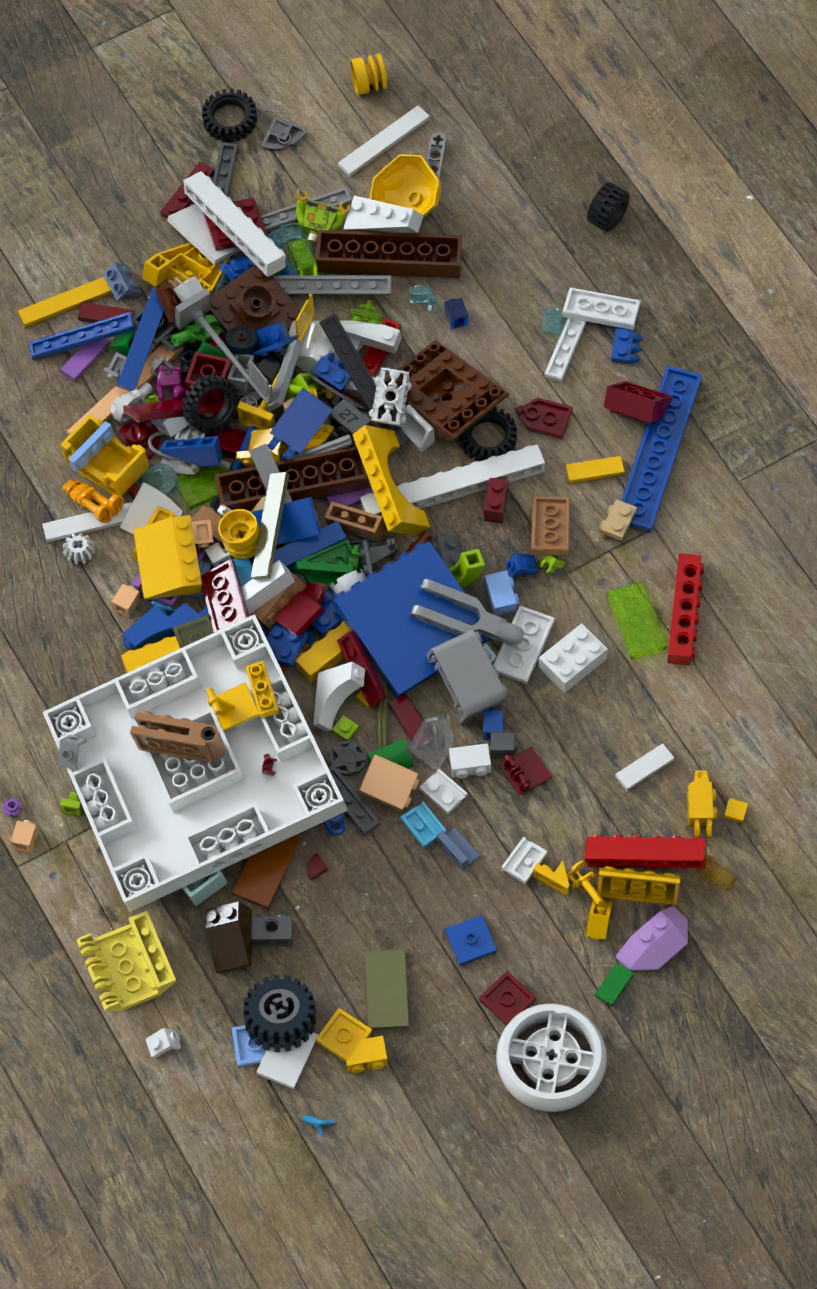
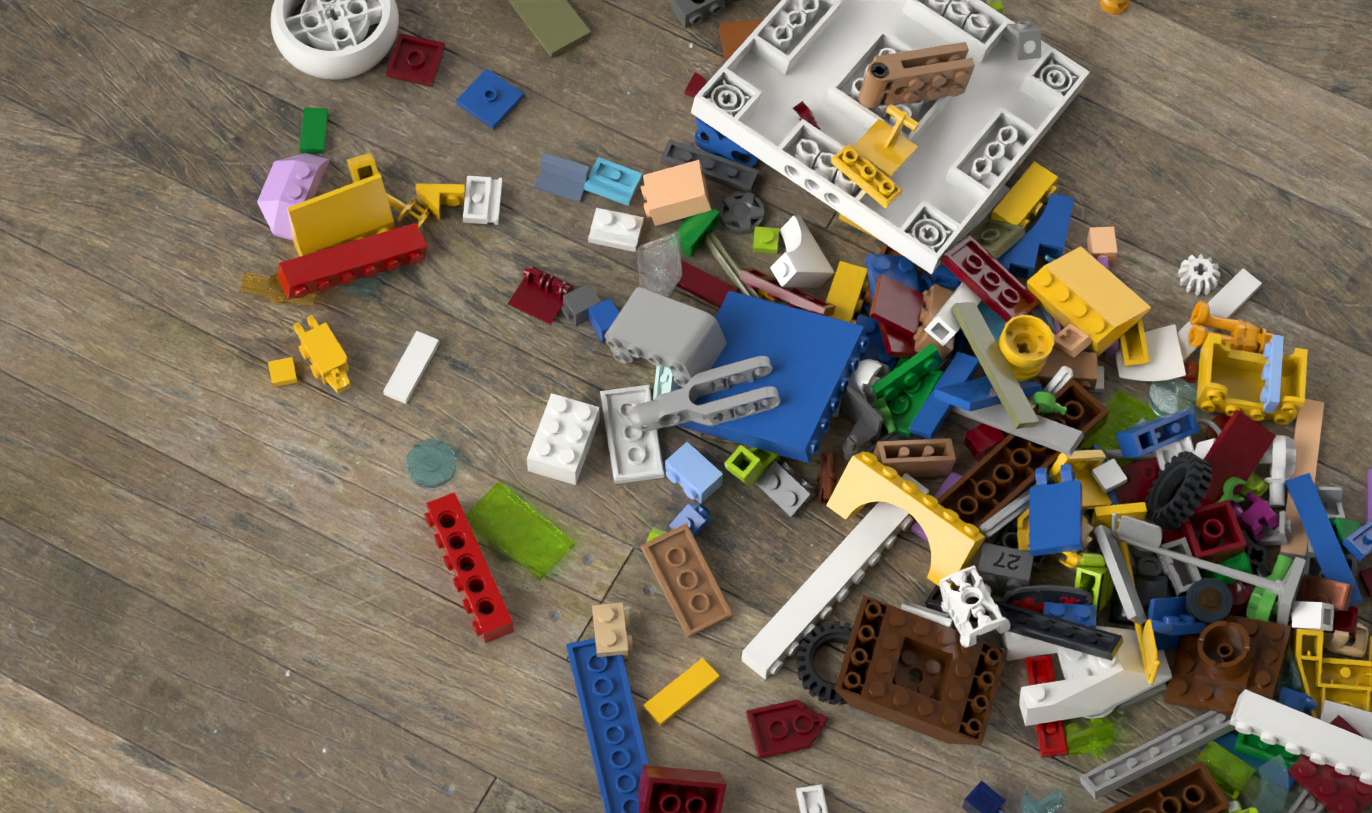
camera: 145 degrees right, 0 degrees up
(173, 397) = (1228, 490): none -> bright green piece
(241, 443) = (1109, 476): none -> white tile
(252, 492) = (1047, 403): none -> bright green piece
(470, 760) = (607, 269): white piece -> none
(495, 500) = (771, 579): dark red brick -> none
(669, 694) = (431, 463): none -> clear light blue tile

